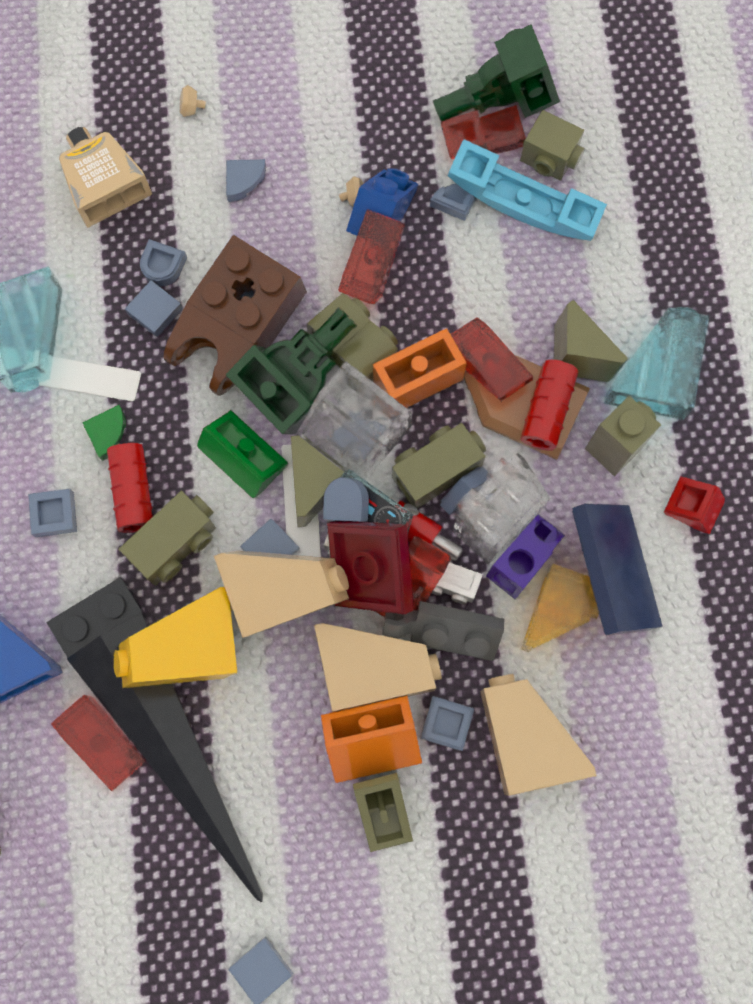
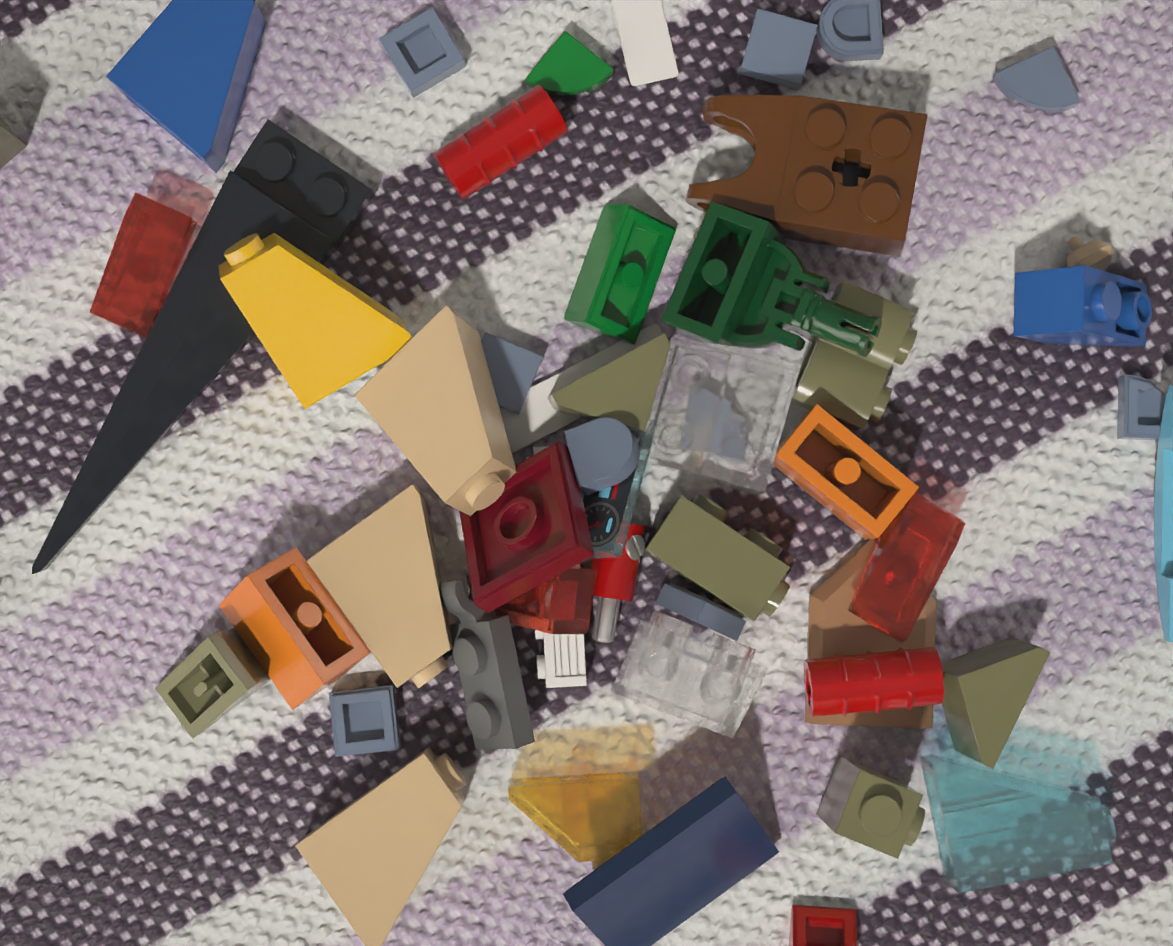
camera: 60 degrees right, 10 degrees up
(170, 537) = (452, 229): olive brick -> none
(371, 257) = (987, 329): clear red slope -> none
(525, 556) = (640, 736): dark purple leg -> none

